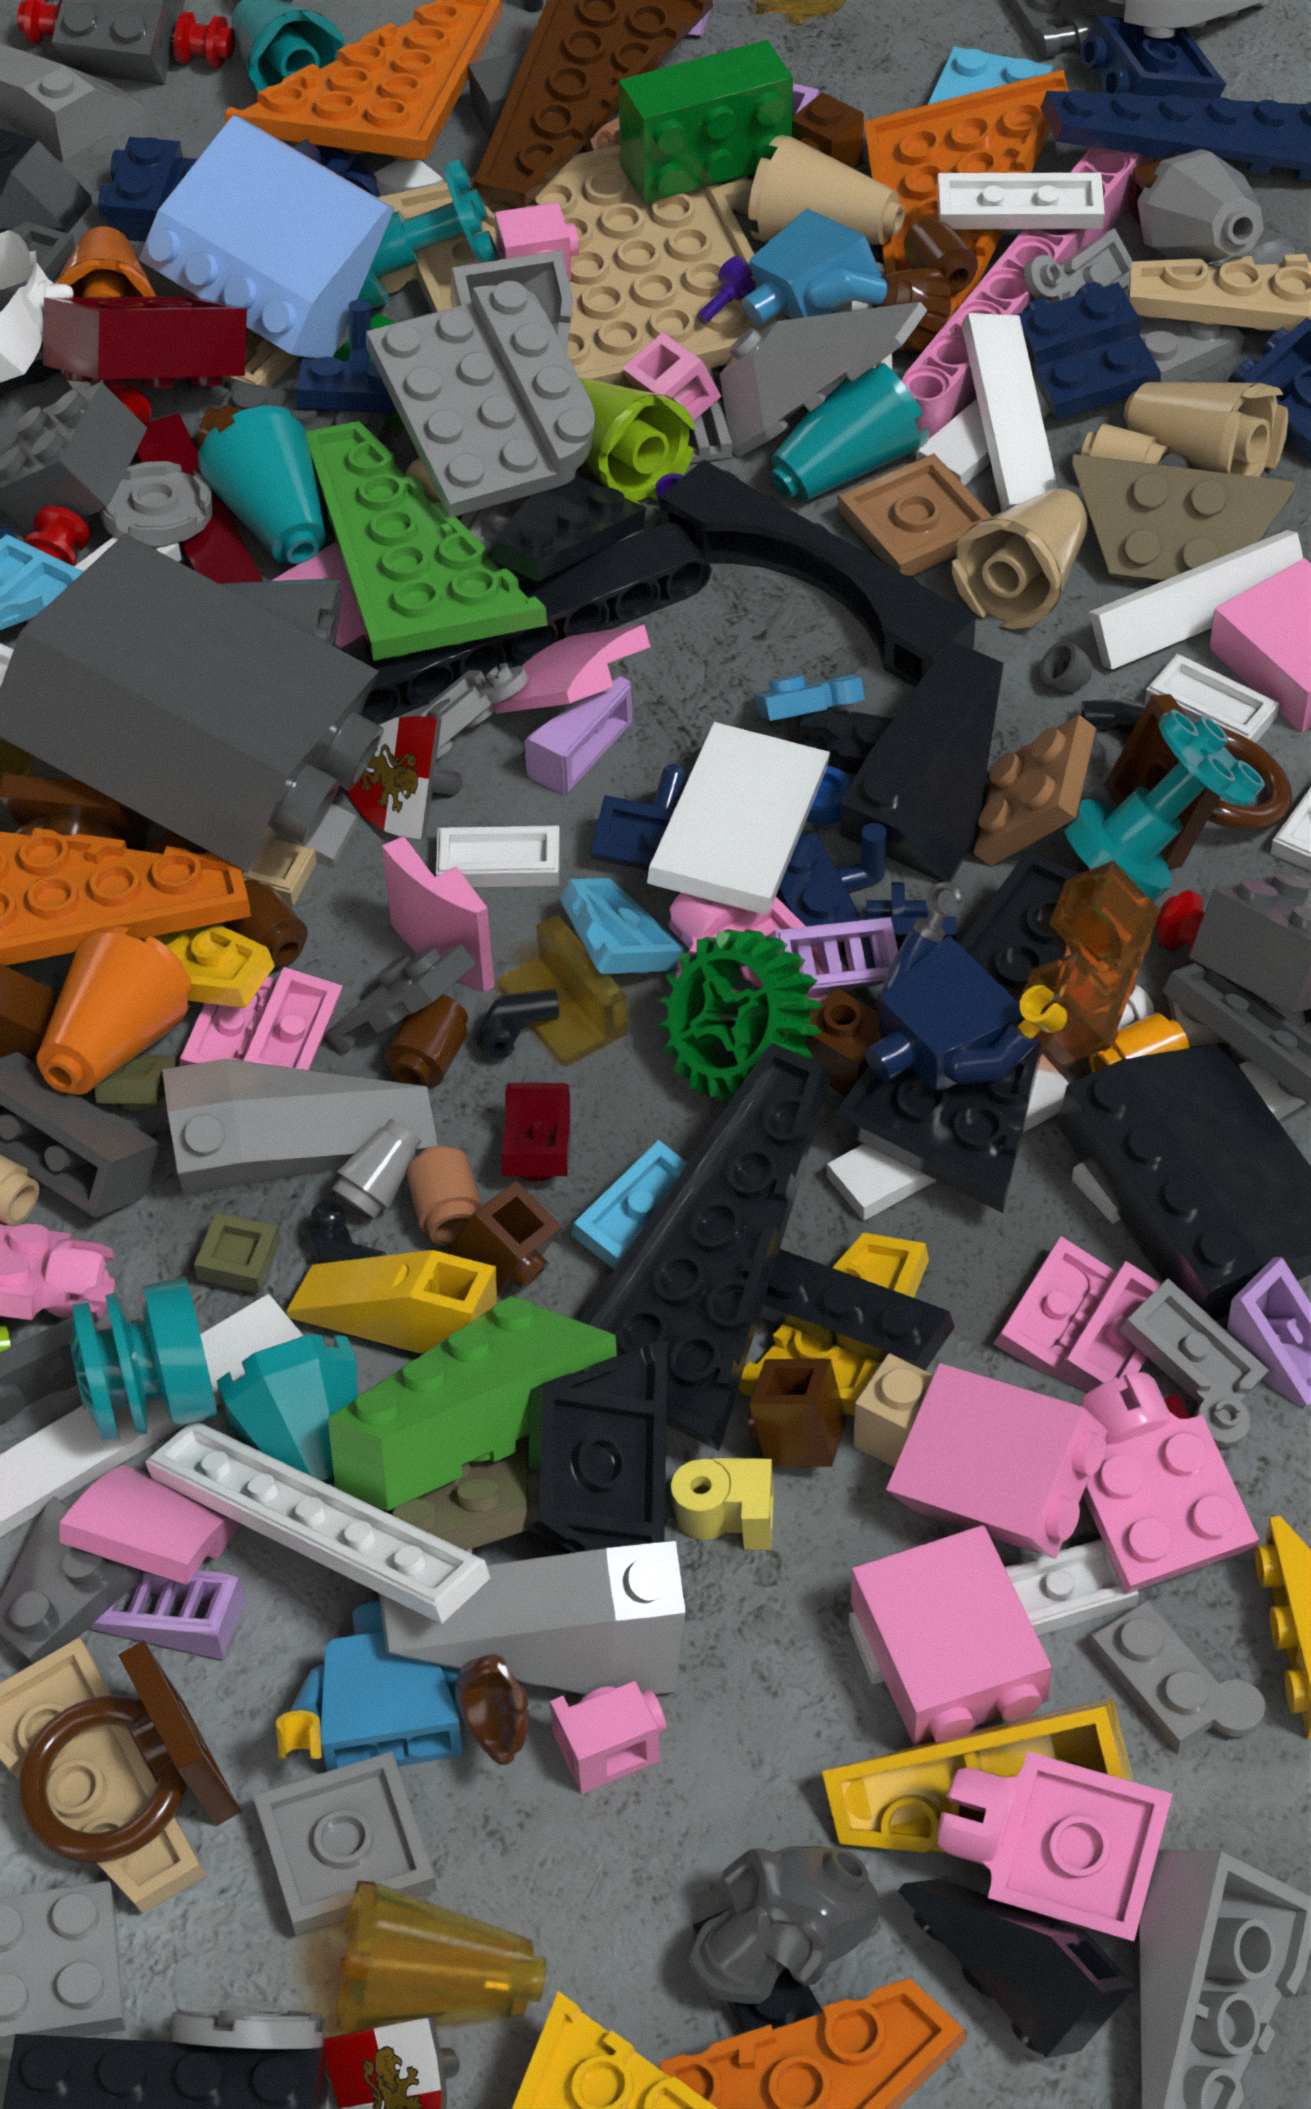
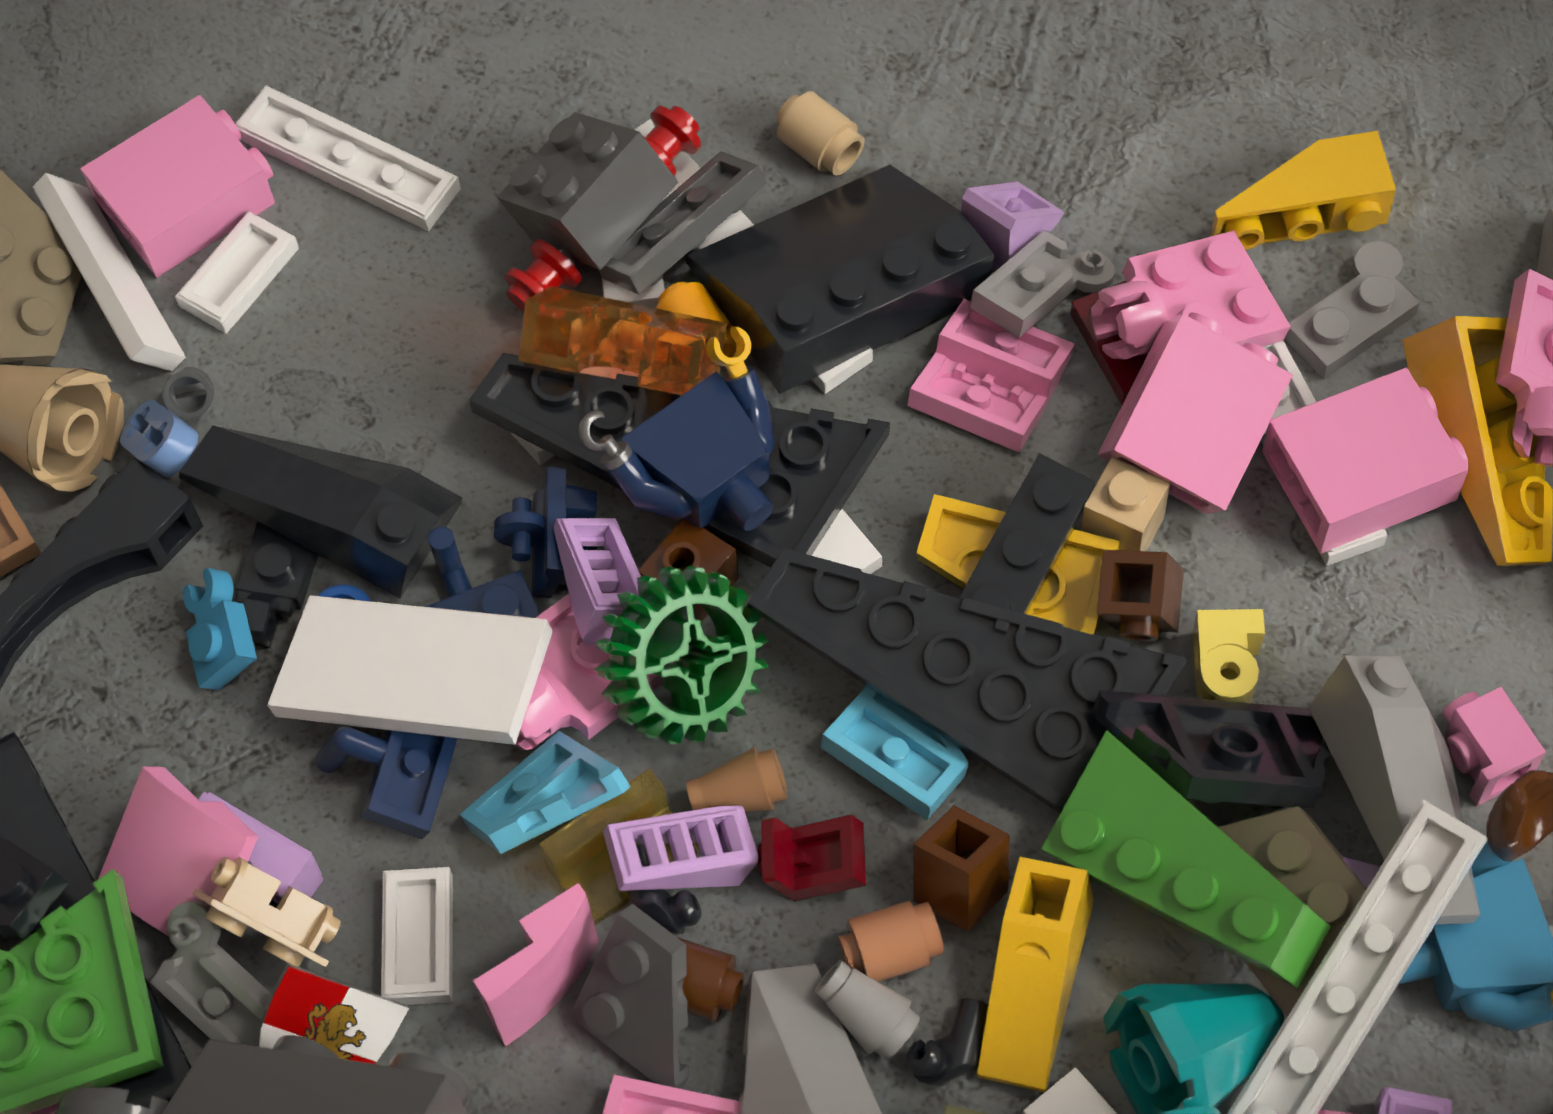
camera: 90 degrees left, 10 degrees up
(509, 700) = (244, 901): none -> tan hinge
(578, 1070) = (722, 838): none -> lavender slope
(619, 1088) = (747, 780): none -> medium nougat cone
(1003, 637) = (159, 438): none -> medium blue beam
(1034, 790) = (377, 401): medium nougat plate -> none
(1112, 713) = (252, 339): black arm -> none
(1149, 758) = (368, 283): reddish brown tile -> none
(1149, 819) = (447, 313): teal piece -> none

